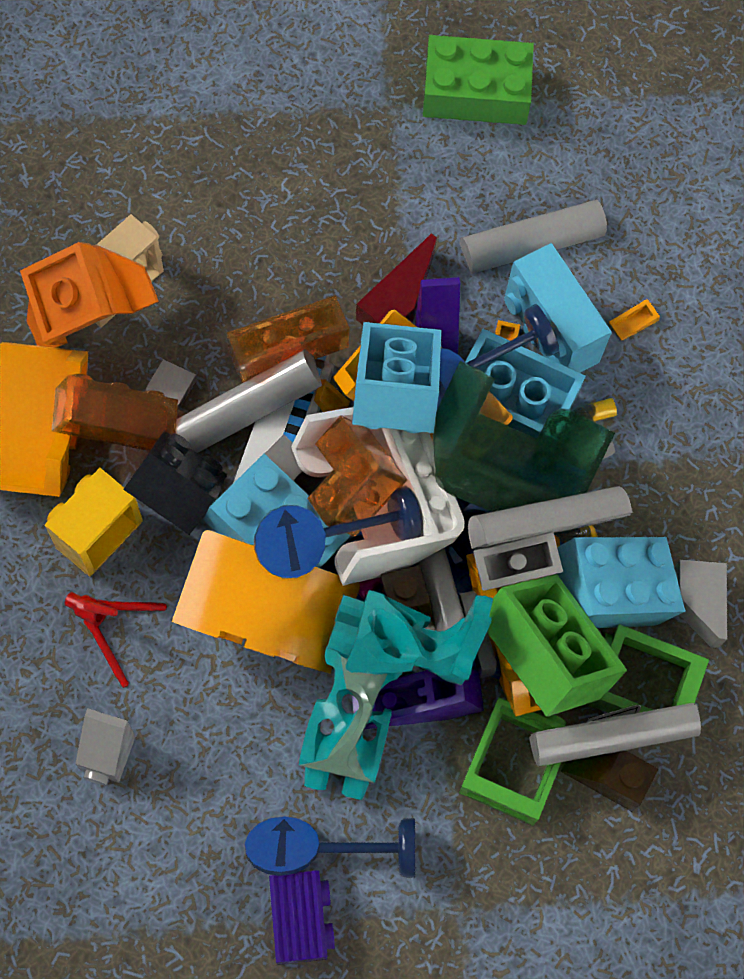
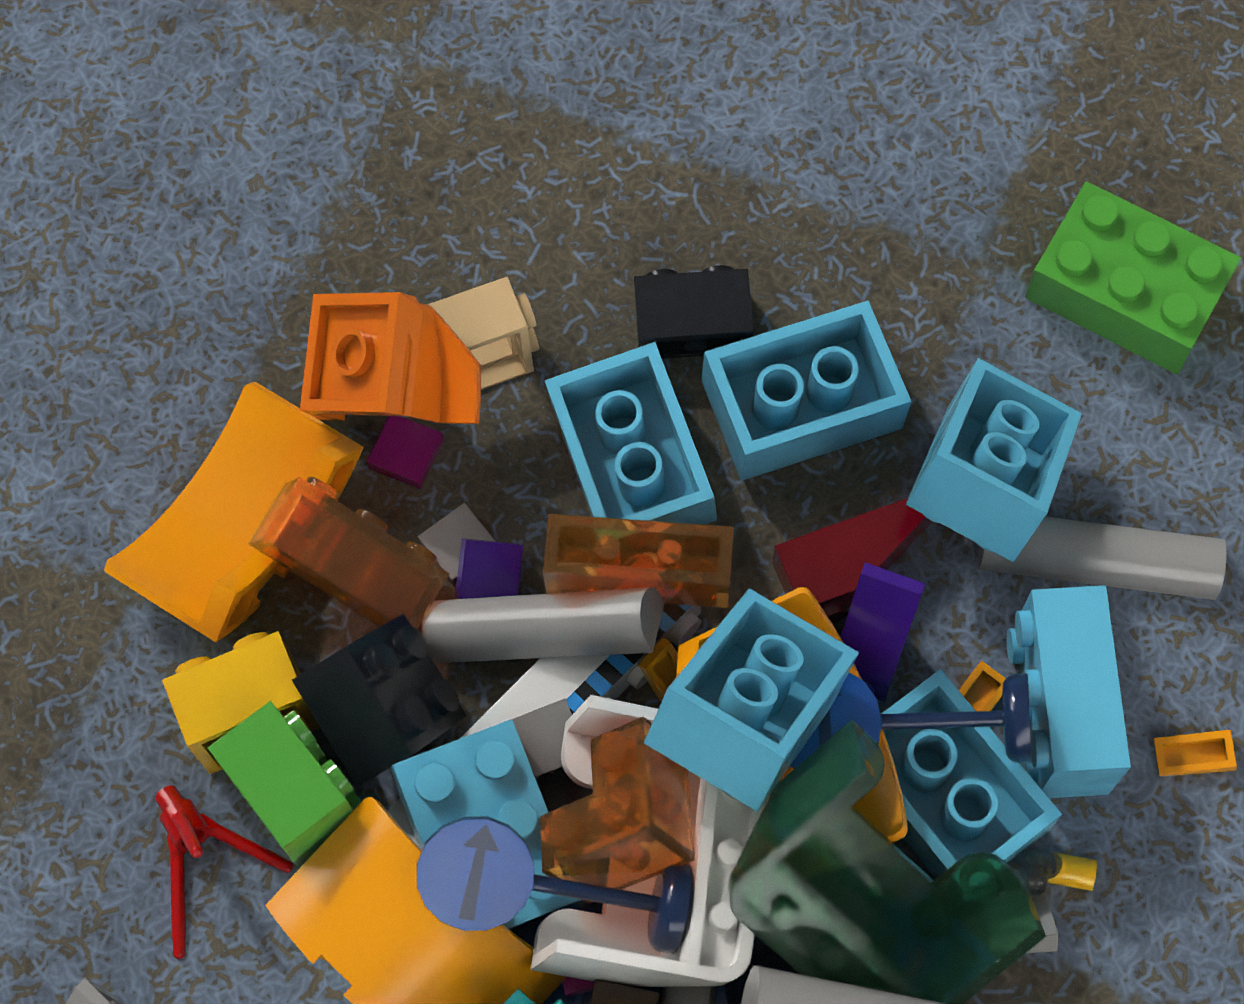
camera: 35 degrees right, 0 degrees up
(111, 346) = (405, 450): none -> magenta tile
(149, 551) = (286, 779): none -> bright green brick
(196, 388) = (488, 569): none -> dark purple tile
(242, 198) = (693, 310): none -> black brick
(242, 278) = (631, 440): none -> medium azure brick
(329, 213) = (805, 390): none -> medium azure brick
(456, 205) = (995, 460): none -> medium azure brick

